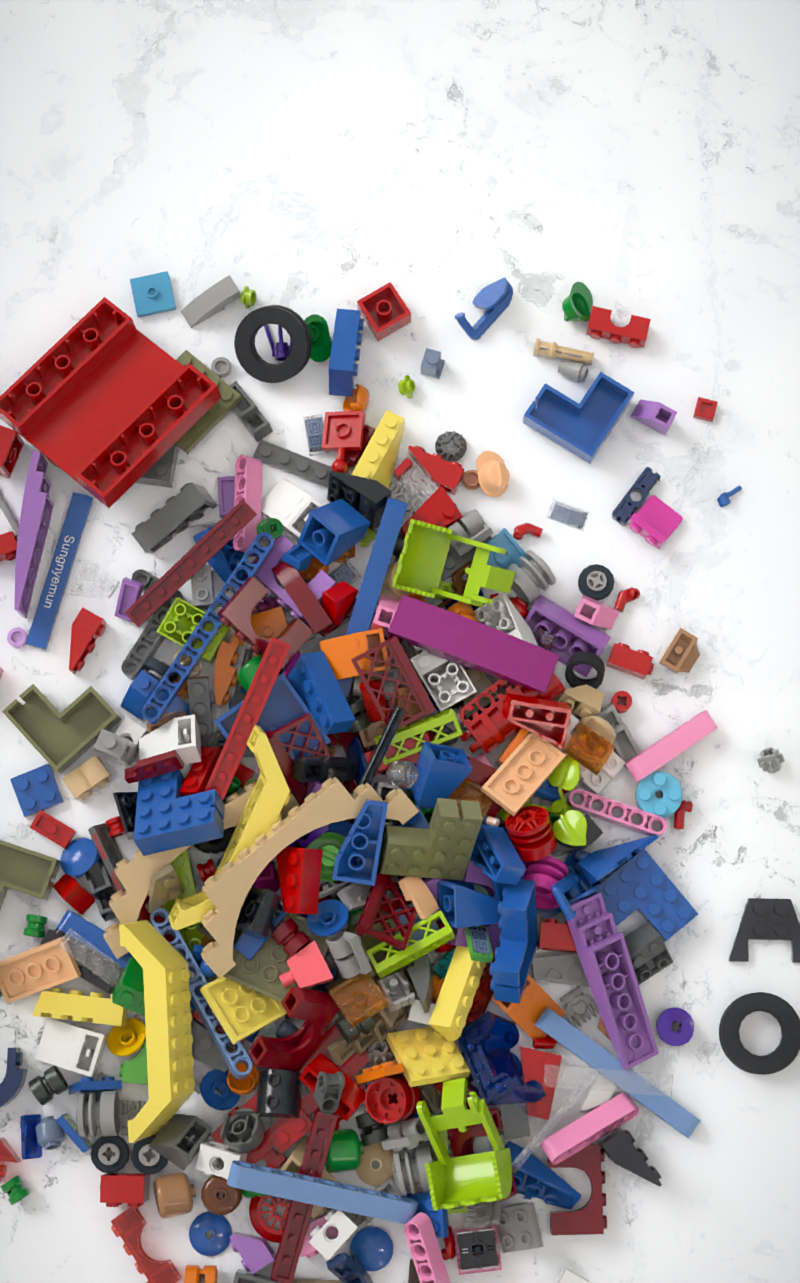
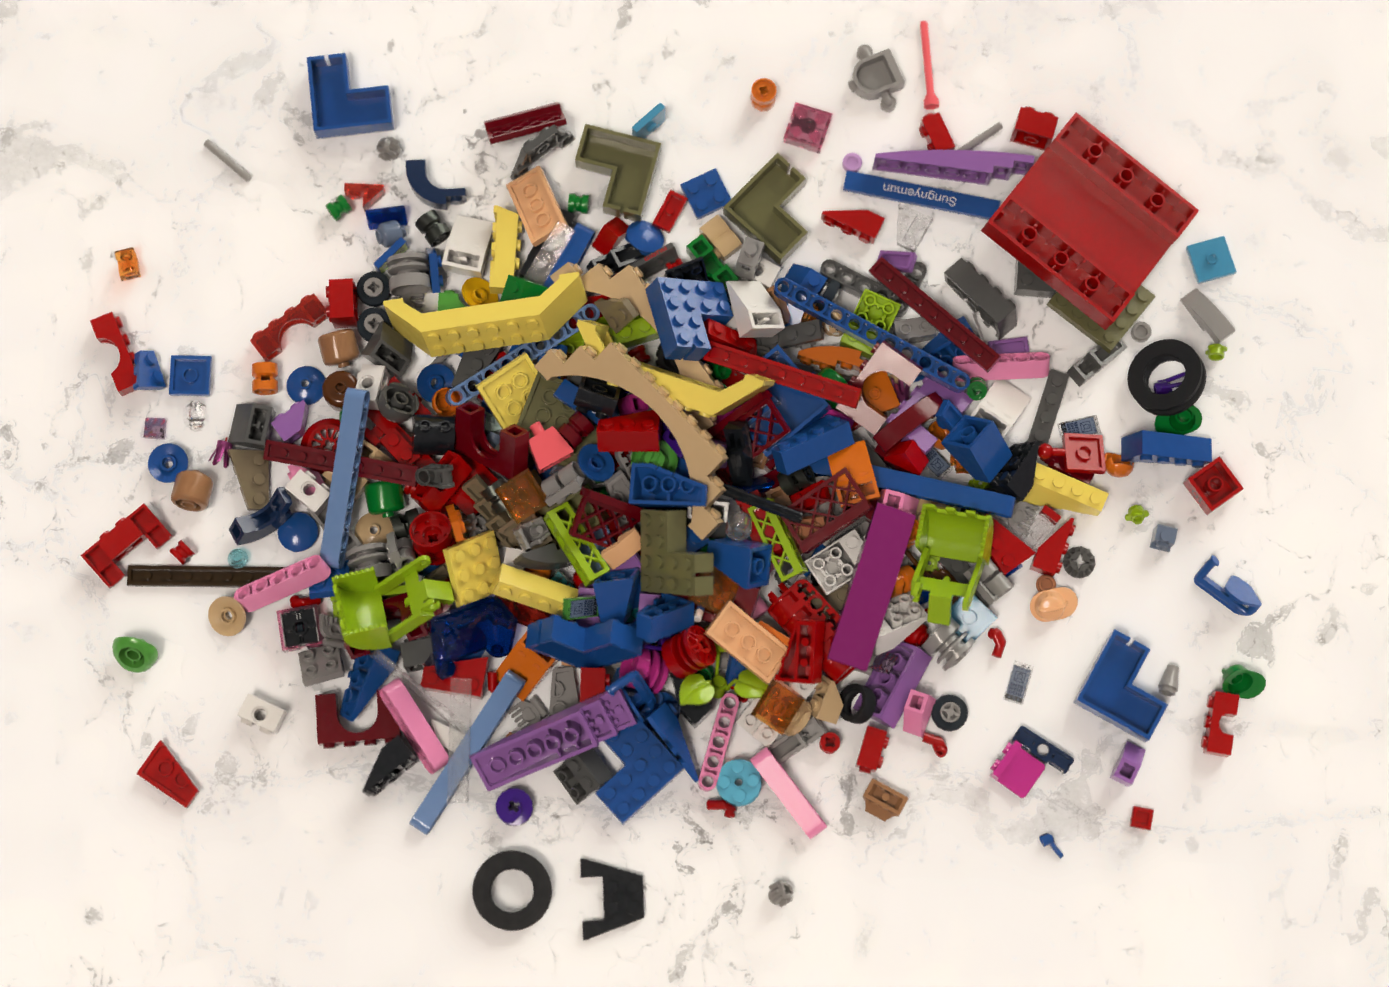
camera: 80 degrees right, 0 degrees up
(102, 797) = (714, 268): none -> green arch
(154, 766) = (731, 293): dark red hinge -> none
(587, 357) = (1189, 659): tan pin -> none

